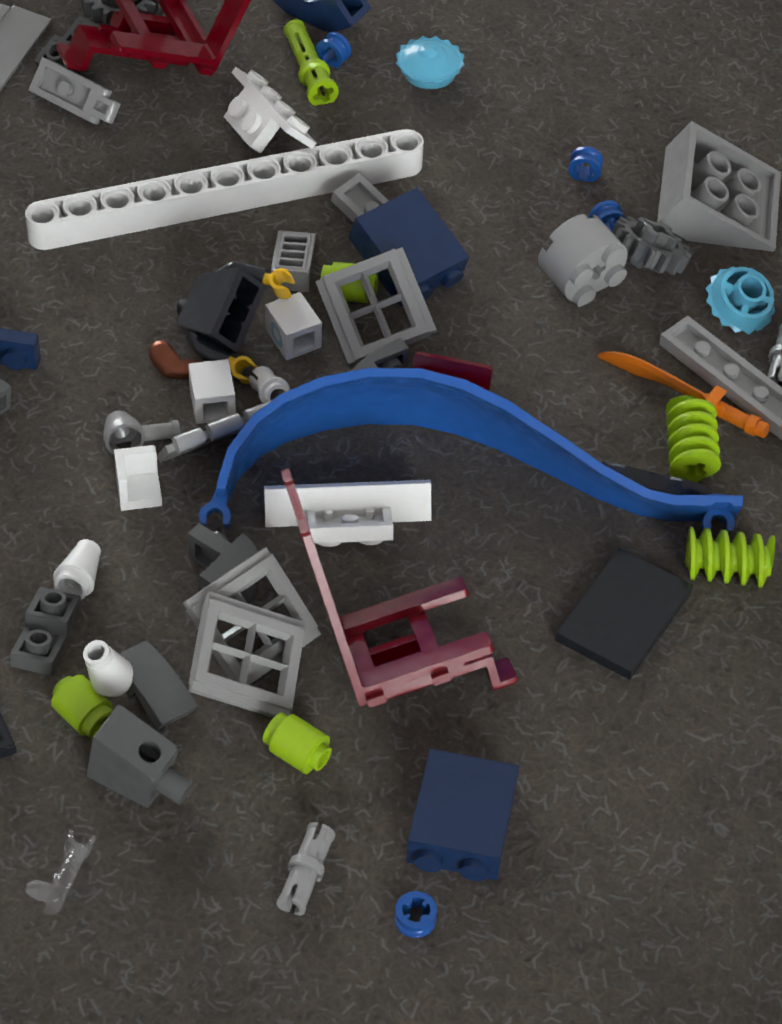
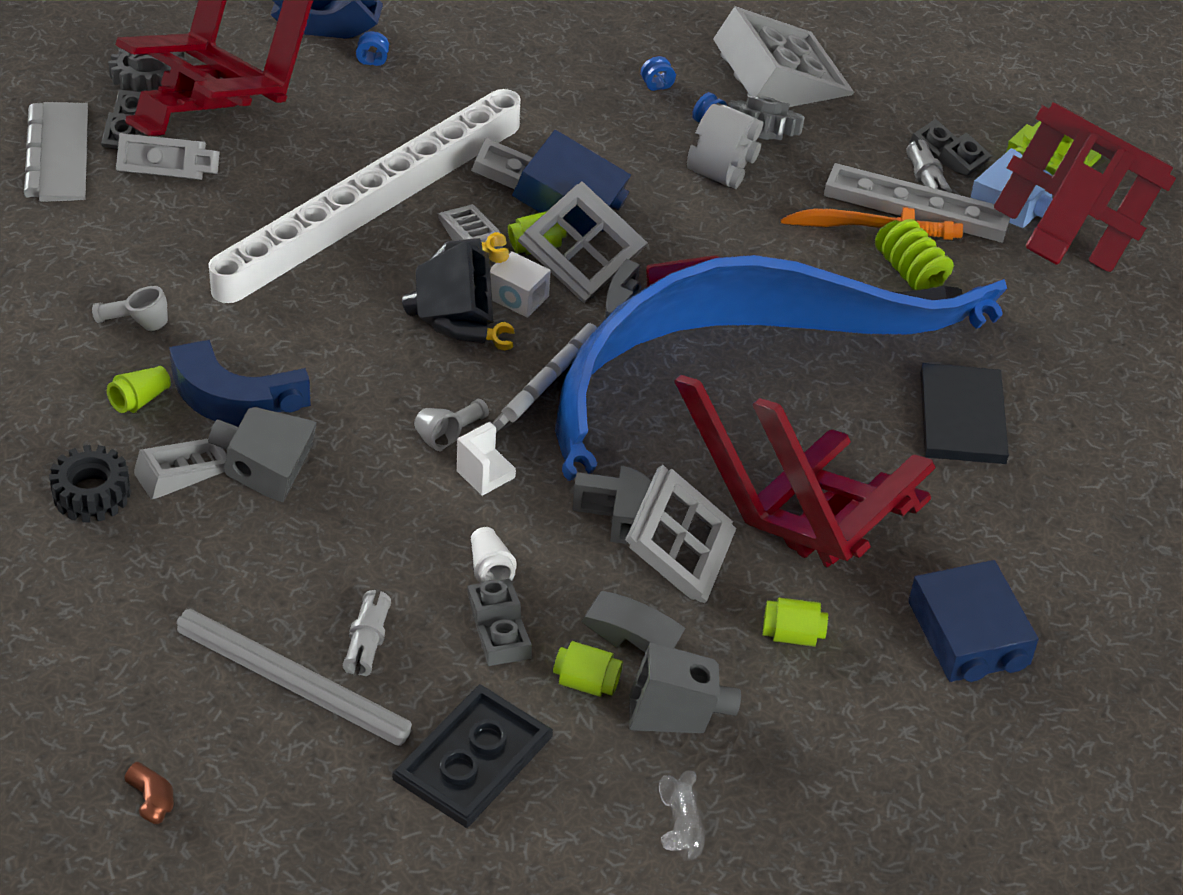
camera: 30 degrees left, 5 degrees down
(107, 670) = (602, 623): white cone -> none
(168, 361) = (432, 355): copper arm -> none
(211, 390) = (492, 363): white brick -> none
(239, 692) = (714, 599): light grey piece -> none
(260, 113) = (357, 123): white bracket -> none
(267, 384) = (544, 342): white pin -> none
(298, 37) = (368, 72): lime pin -> none
(306, 868) = (879, 721): light grey pin -> none
(351, 510) = (668, 422): white bracket -> none
(404, 906) = (995, 706): blue bush -> none
(429, 62) = (466, 33): medium azure piece -> none
(728, 556) = (1014, 335): lime piece -> none
(741, 299) = (864, 135): medium azure piece -> none

